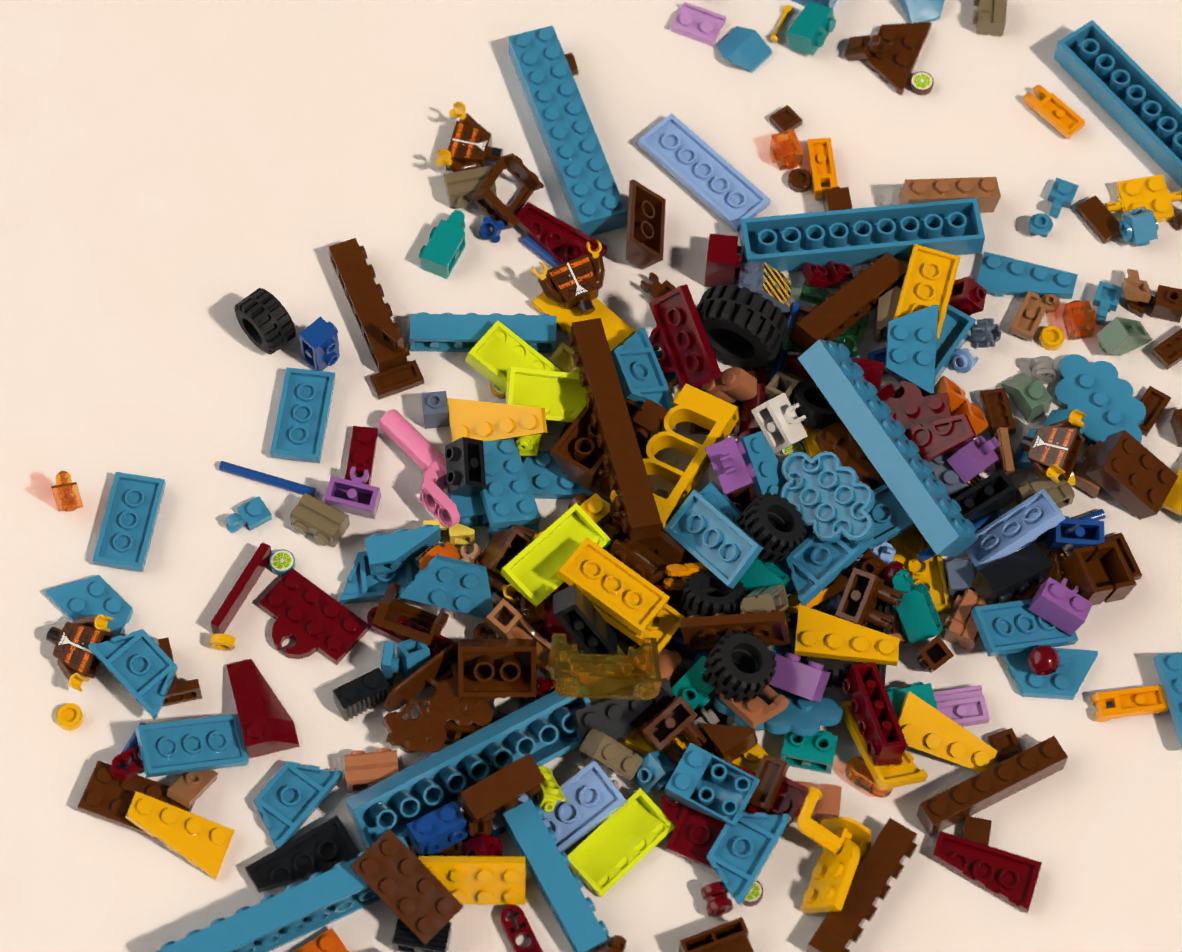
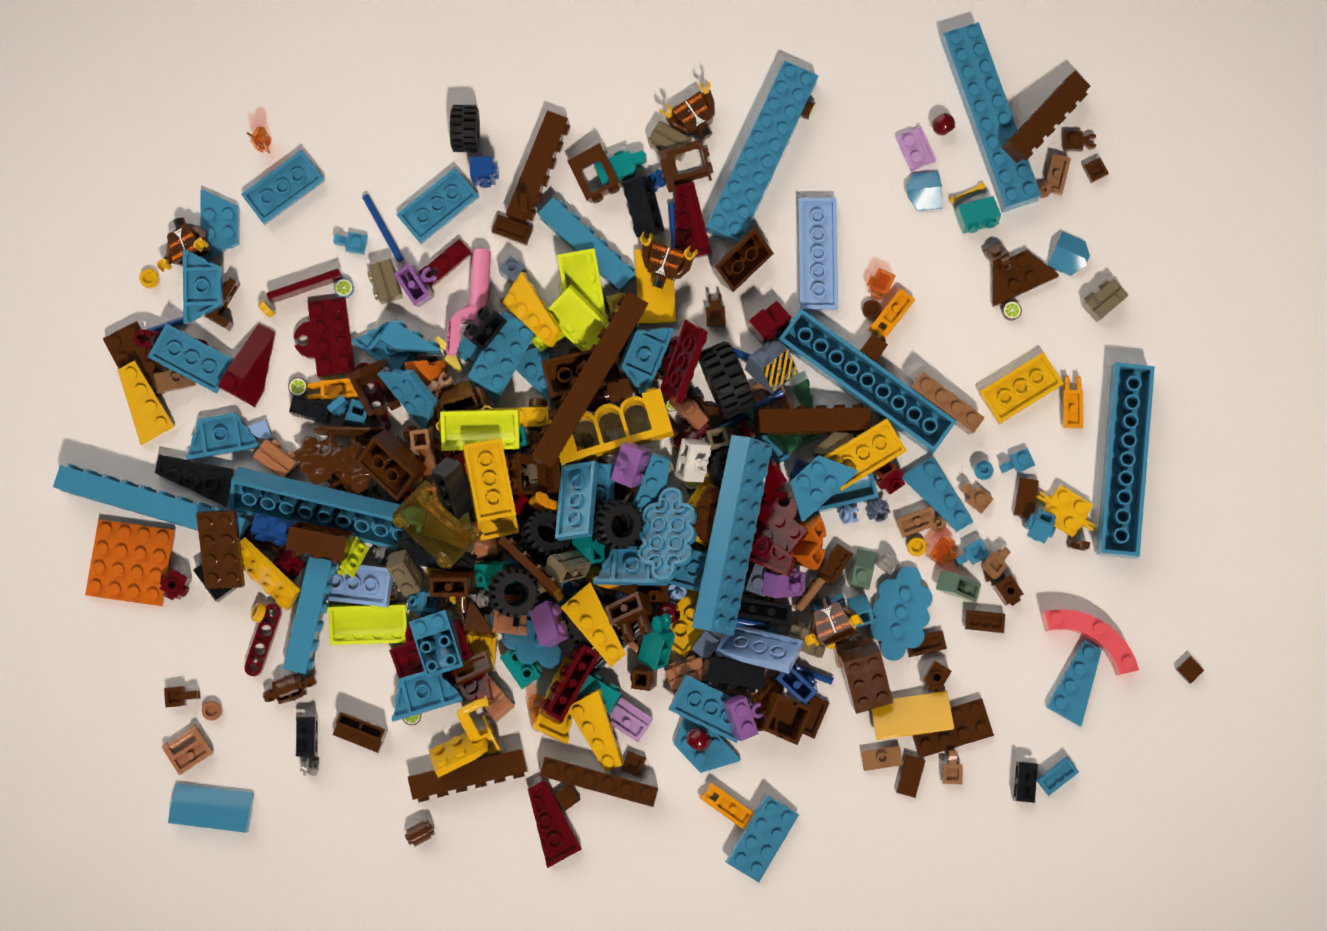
camera: 45 degrees right, 20 degrees up
(323, 688) = (298, 386): none -> tile
(328, 758) = (261, 430): none -> light blue tile
(366, 655) = (332, 389): none -> light orange hinge
(410, 254) = (586, 159): none -> reddish brown window
(499, 928) = (258, 612): none -> yellow tile
(503, 258) = (643, 207): none -> black brick
(564, 767) = (379, 553): none -> light grey plate
(716, 899) = (384, 707): dark red wheel -> none
(785, 119) = (903, 262): reddish brown tile -> none
(830, 276) = (824, 390): dark red slope -> none
(998, 135) = (1021, 388): none -> yellow plate
(1059, 253) = (977, 498): none -> medium nougat plate

